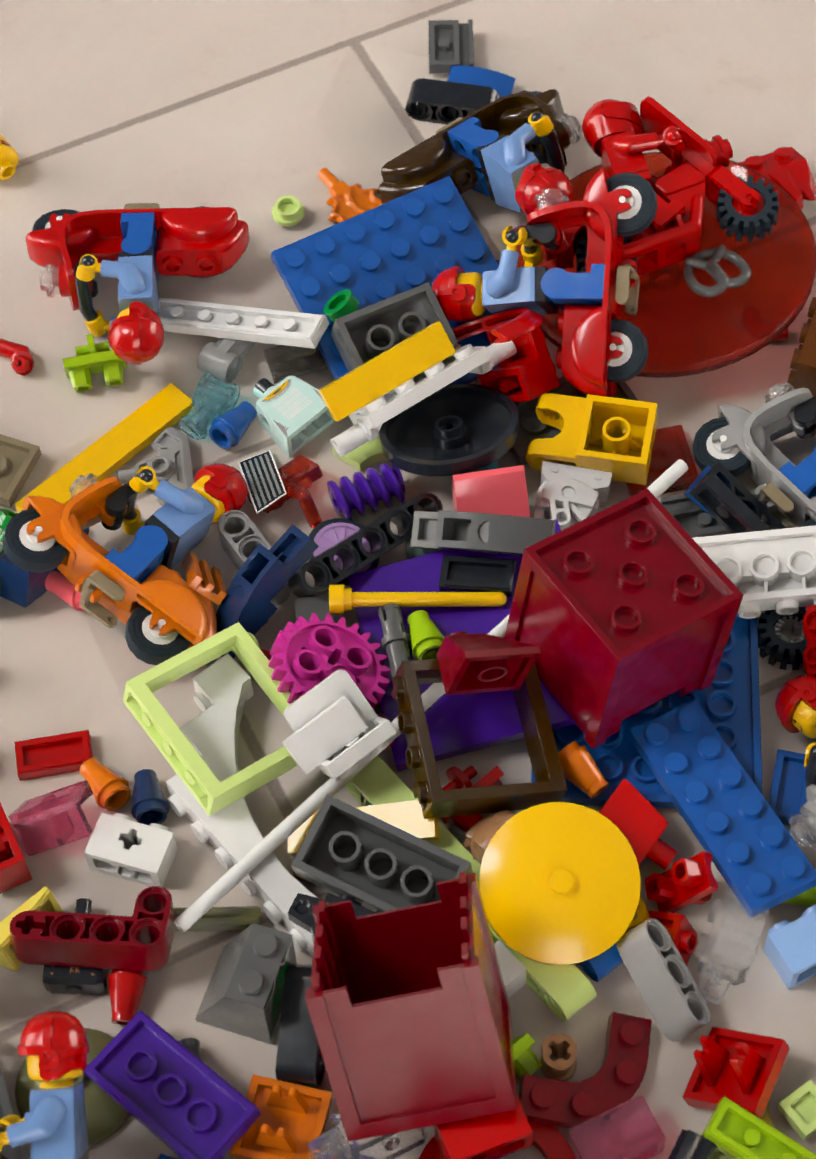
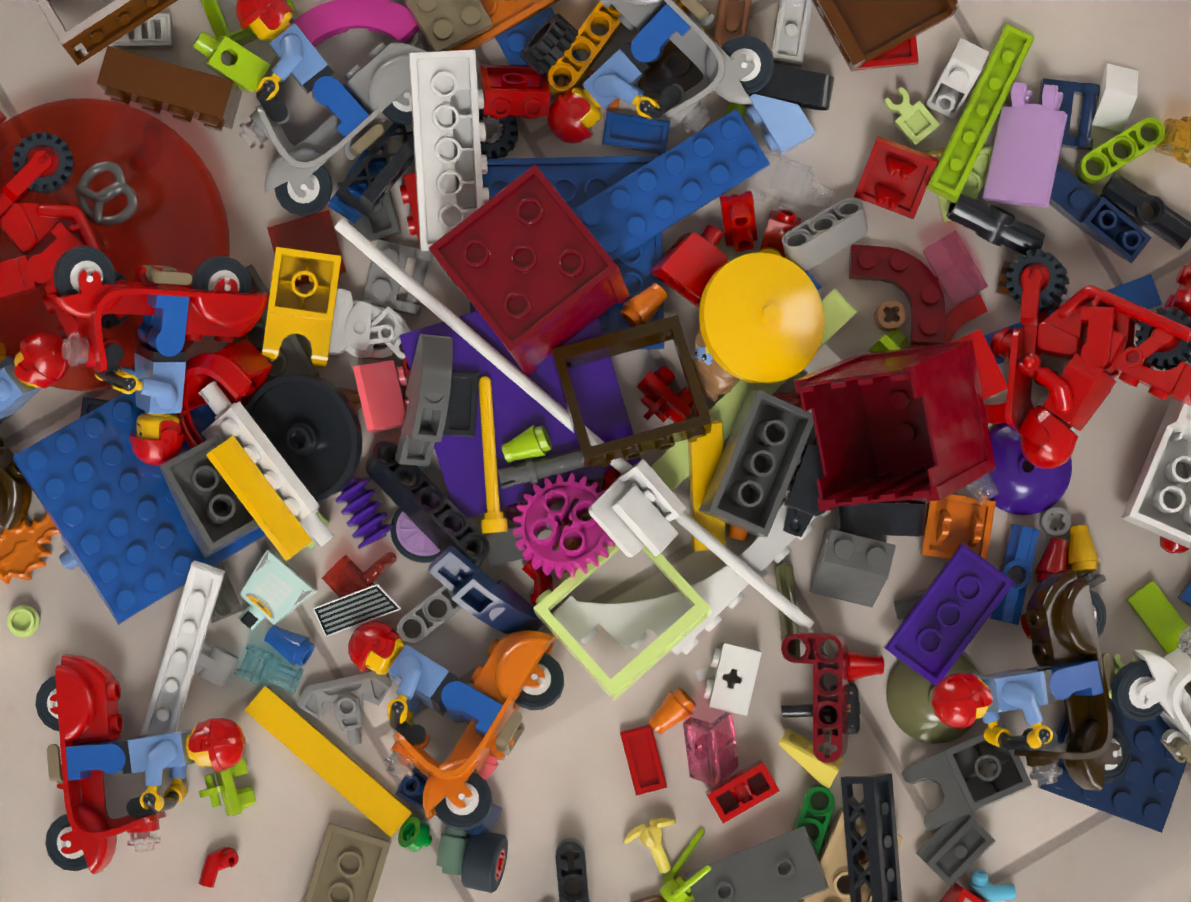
camera: 95 degrees left, 30 degrees up
(148, 800) = (684, 671): dark blue cone -> none
(203, 580) = (472, 648): orange tile -> none
(341, 304) = (180, 548): green tile -> none
(484, 663) = (584, 390): dark red slope -> none

